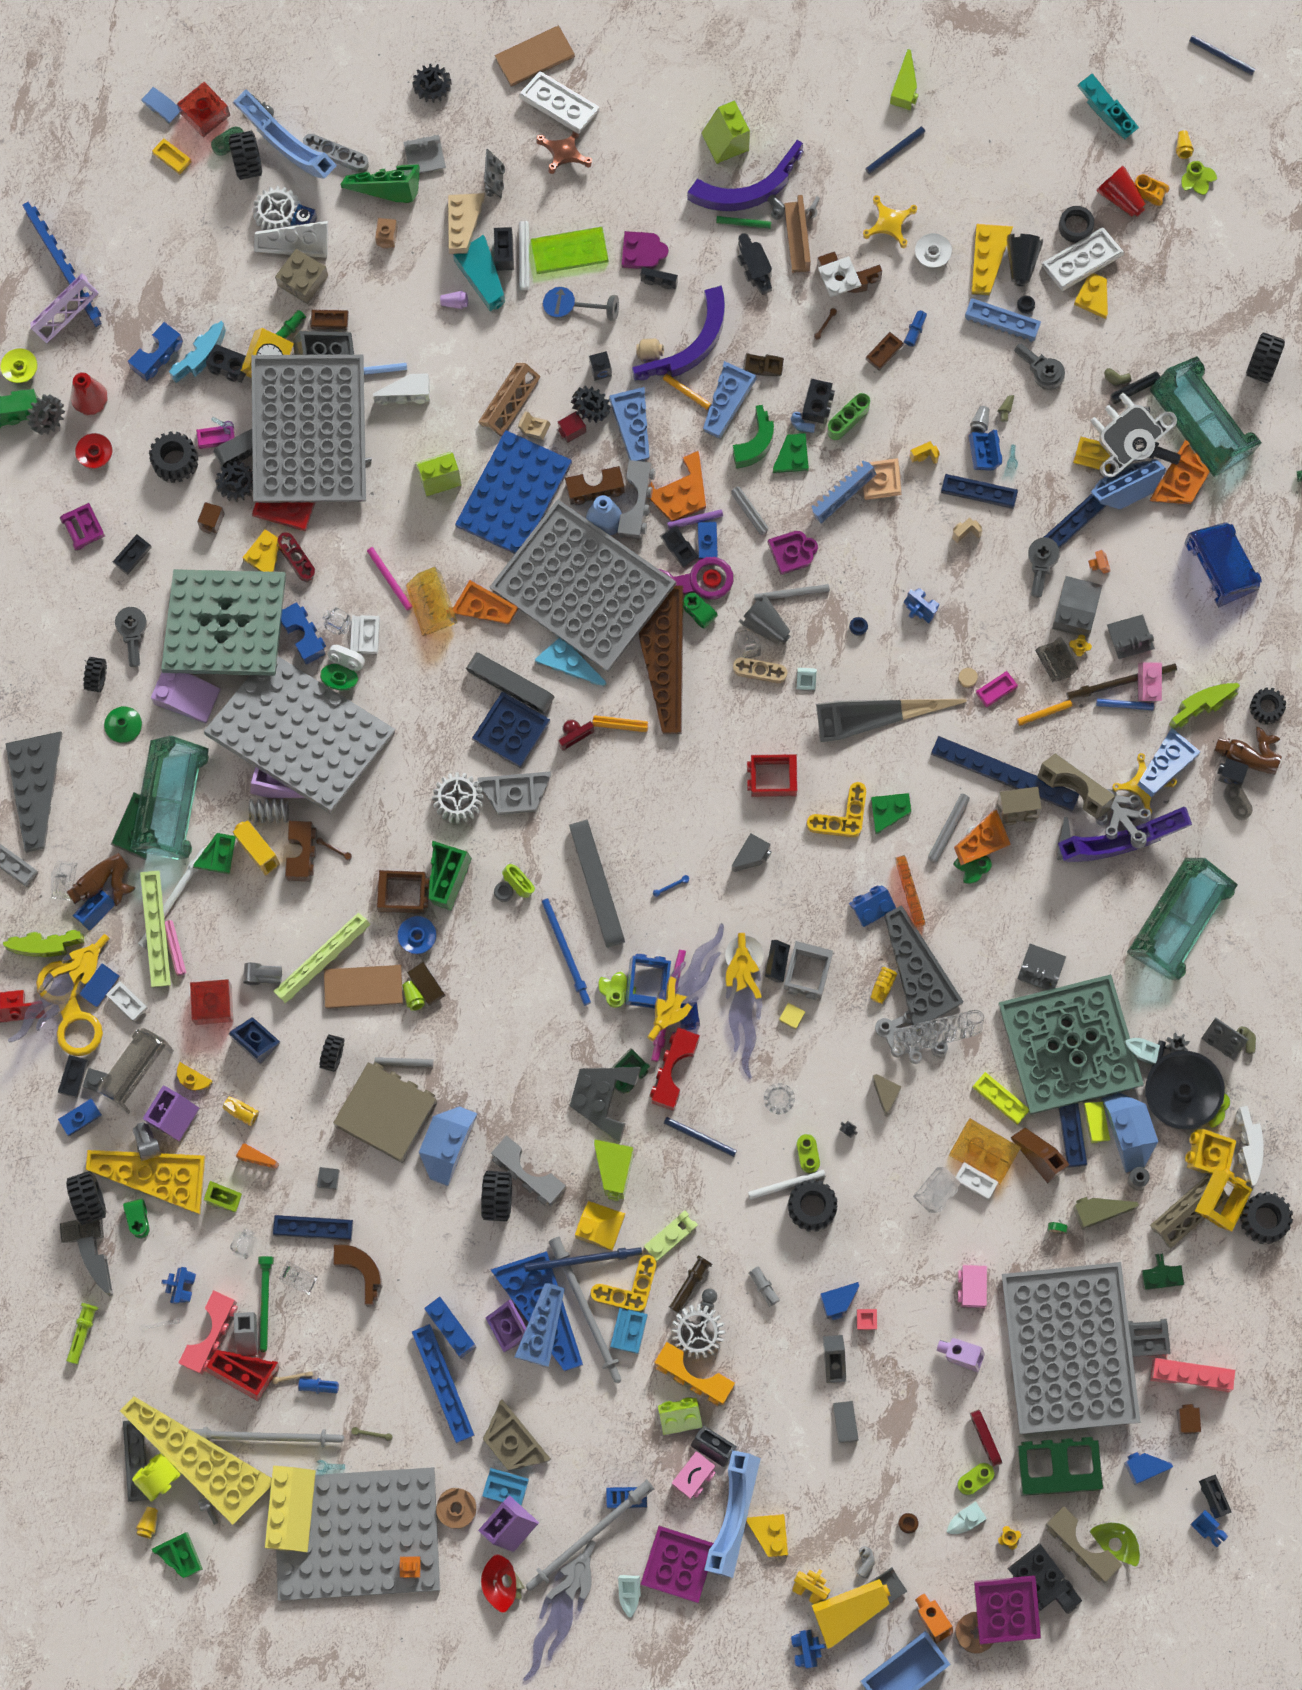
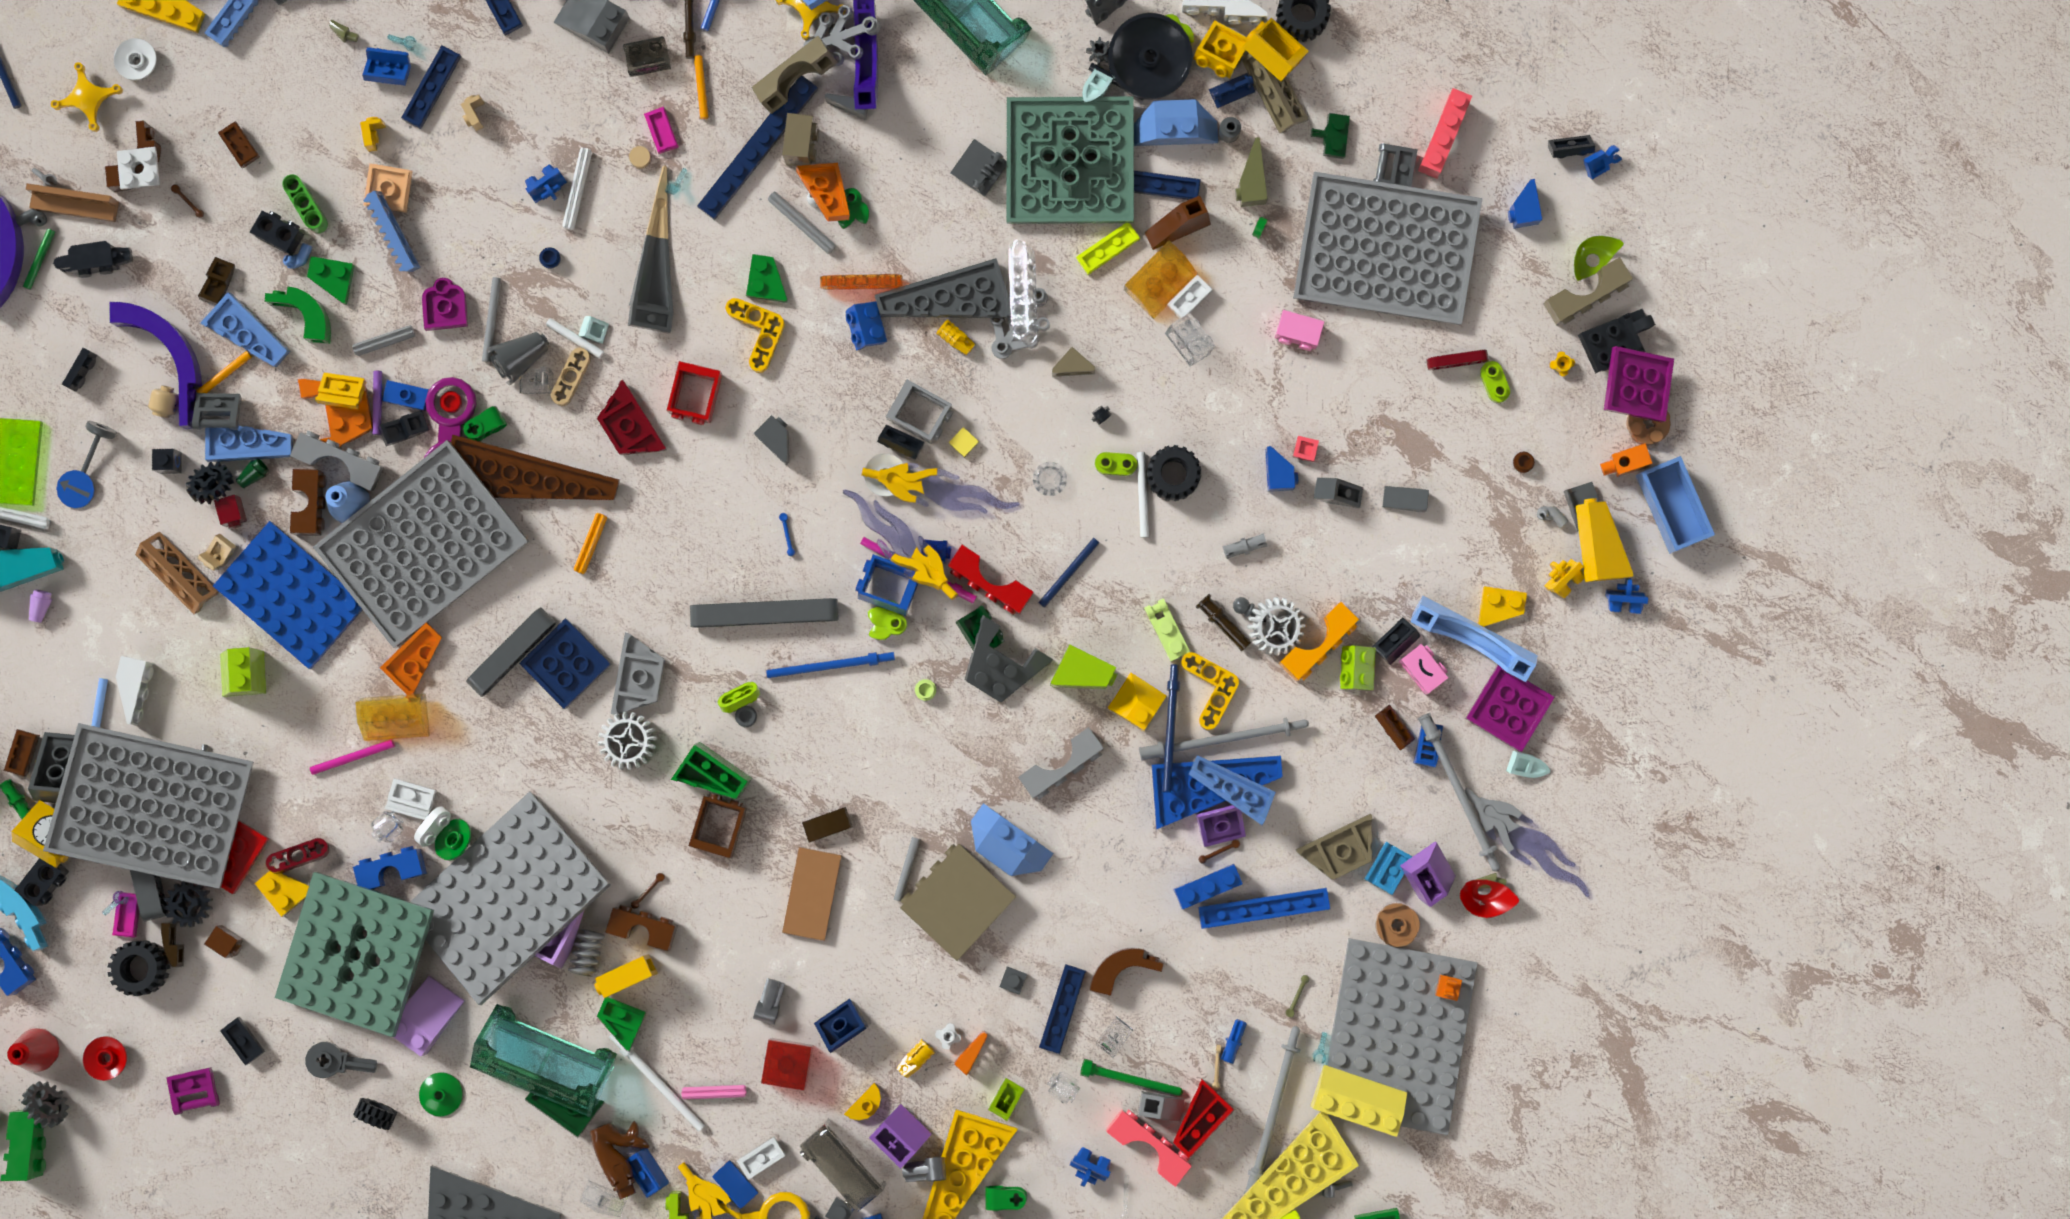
camera: 80 degrees left, 10 degrees up
(155, 929) = (688, 1108): yellowish green plate -> none
(193, 481) = (173, 951): none -> dark brown slope
(270, 1137) = (947, 1042): none -> white plate
(322, 957) = (768, 931): yellowish green plate -> none
(331, 1053) = (879, 944): black tyre -> none
(413, 997) = (837, 842): lime cone -> none
(414, 926) = (759, 821): blue dish -> none
(494, 1344) = (1234, 844): none -> reddish brown hinge
(496, 1196) = (1082, 803): black tyre -> none
(564, 1038) = (925, 690): none -> yellowish green plate
(566, 659) = (499, 585): medium azure wing -> none
(574, 733) = (588, 595): dark red tile -> none
(609, 436) = (252, 473): none -> dark green cone
(629, 1330) = (1256, 698): dark azure plate -> none
(634, 1462) = (1394, 727): none -> reddish brown plate
(642, 250) = (40, 380): magenta plate -> none
(657, 391) = (216, 405): none -> dark grey plate
(696, 486) = (340, 390): none -> yellow plate
(731, 727) = (628, 425): none -> dark red wing
(794, 665) = (575, 338): none -> white bar
(915, 328) = (221, 104): blue axle -> none
(925, 633) = (577, 188): none -> white axle
(948, 711) = (674, 187): none -> clear light blue hand
(966, 1519) = (1533, 402): light aqua plate -> none
(970, 1356) = (1372, 352): lavender torso -> none
(980, 420) = (351, 63): light grey cone -> none
(1042, 565) = (535, 42): dark grey piece -> none
(1061, 1480) = (1519, 294): dark green window -> none
(1079, 651) = (637, 34): yellow plate -> none
(1096, 1122) = (1158, 157): neon yellow slope -> none
(1176, 1172) = (1232, 90): none -> dark blue hinge
(1189, 1419) = (1488, 150): reddish brown brick -> none

